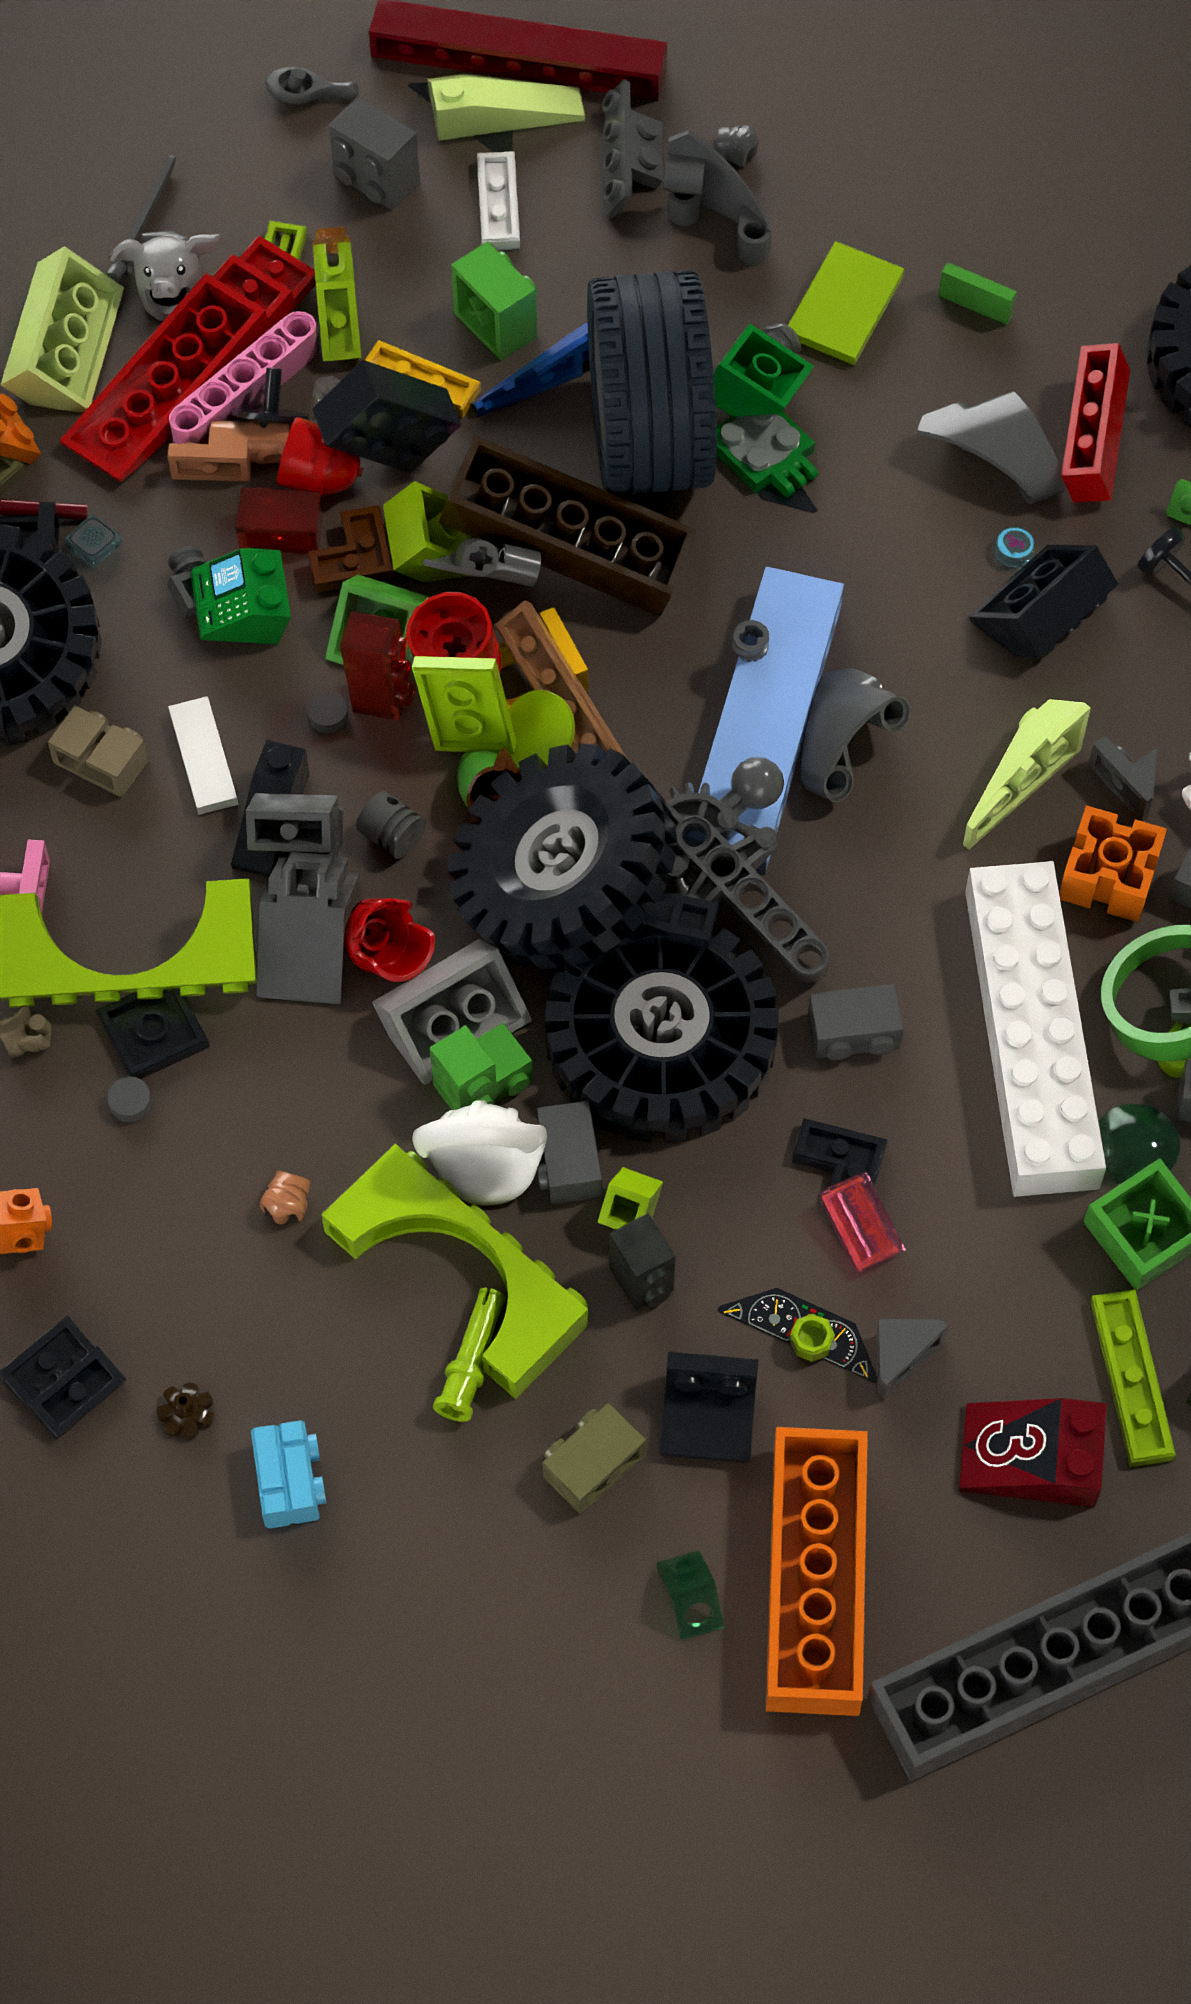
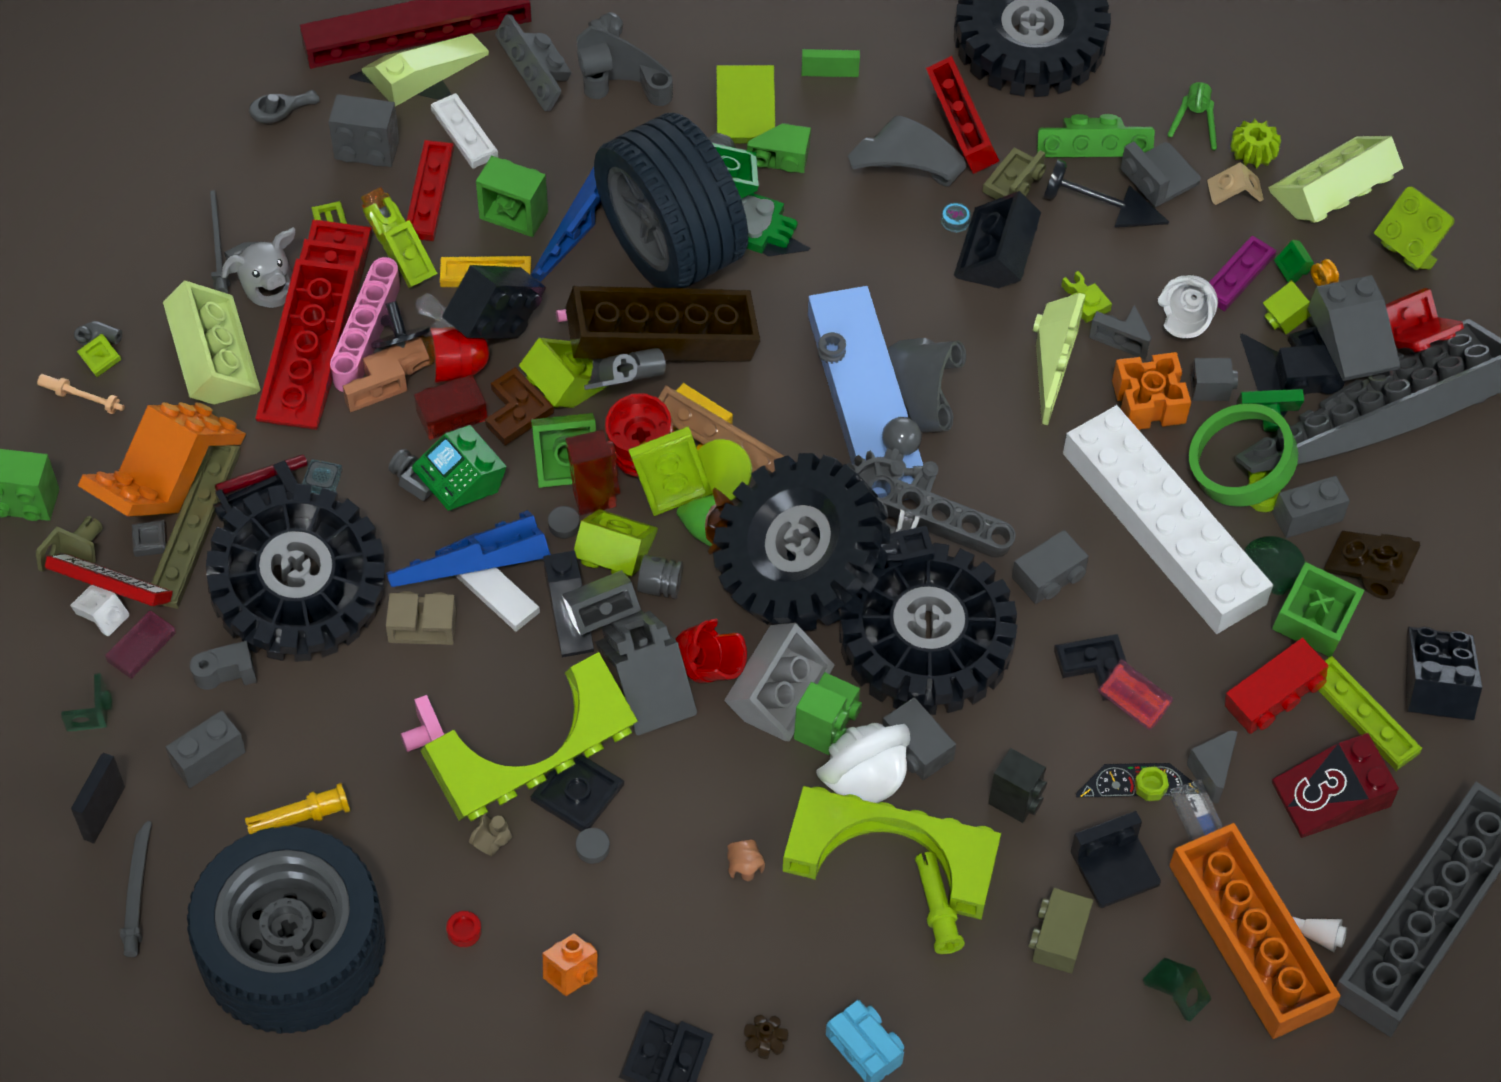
camera: 30 degrees left, 5 degrees down
(227, 707) = (493, 548): none -> blue wedge
(364, 758) = (613, 542): none -> lime slope
(415, 255) = (430, 188): none -> red tile
(629, 1198) = (981, 750): lime brick -> none
(849, 1394) = (1195, 809): none -> clear tile
(853, 374) = (782, 148): none -> bright green slope
(909, 1617) = (1324, 932): none -> white cone
(1037, 1294) = (1277, 686): none -> red brick
(1112, 716) = (1094, 298): none -> lime plate
(1118, 525) = (1015, 174): none -> olive bracket

